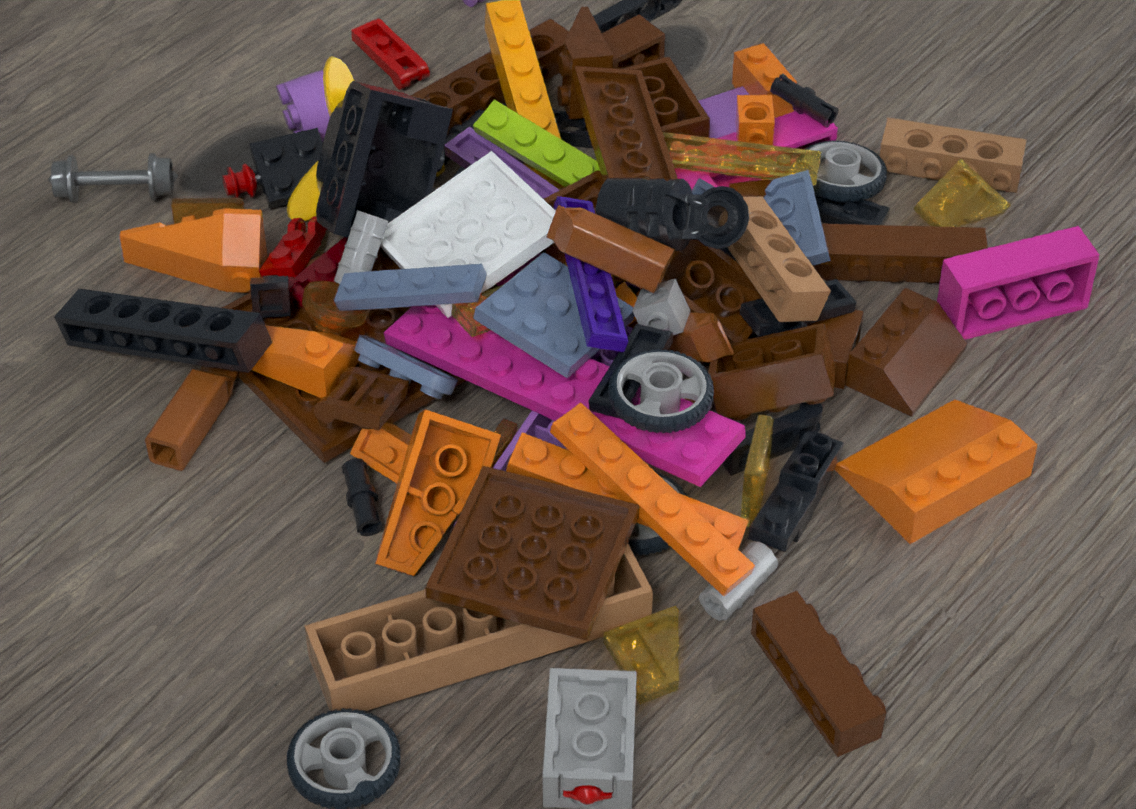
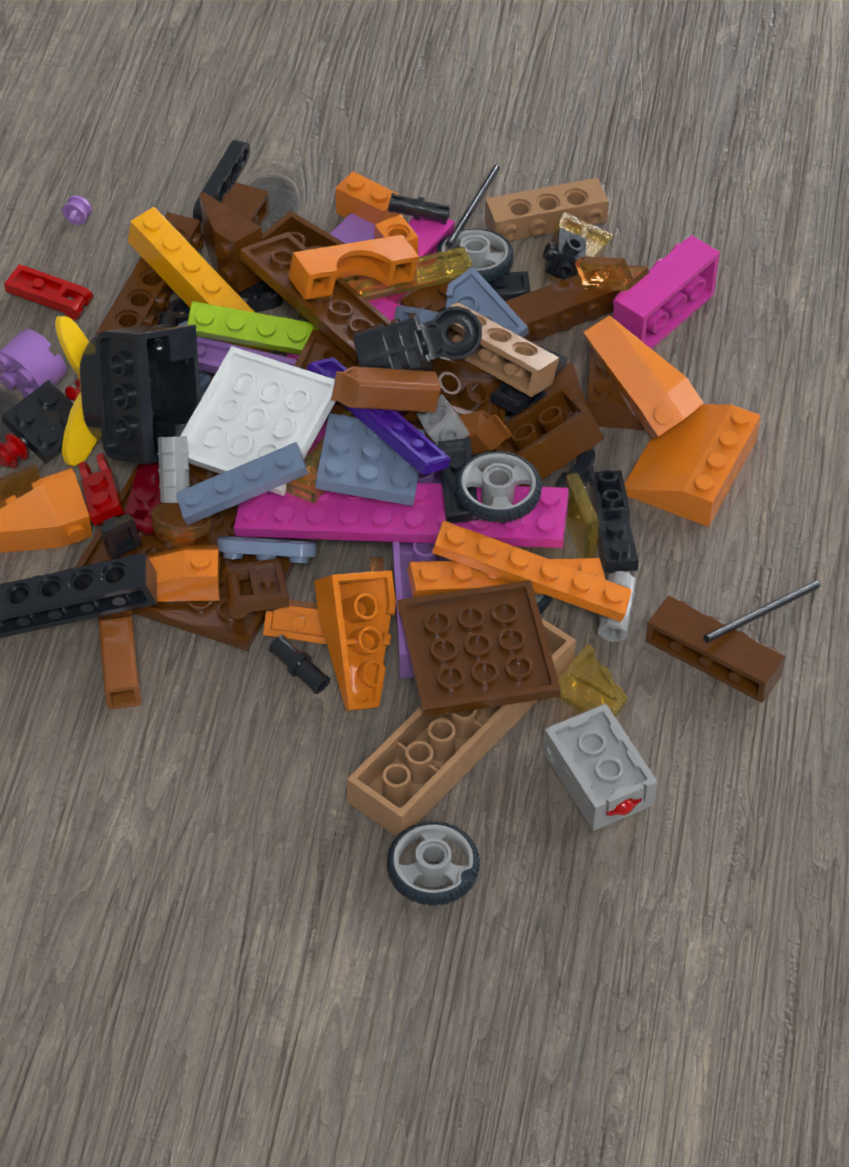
camera: 30 degrees left, 5 degrees up
(716, 128) = (384, 259): none -> orange arch
(873, 123) = (472, 206): none -> black axle
(894, 654) = (761, 611): none -> black axle
(925, 357) = (646, 380): none -> orange wedge
(931, 201) = (562, 254): none -> black brick
(956, 232) = (609, 273): none -> clear orange panel

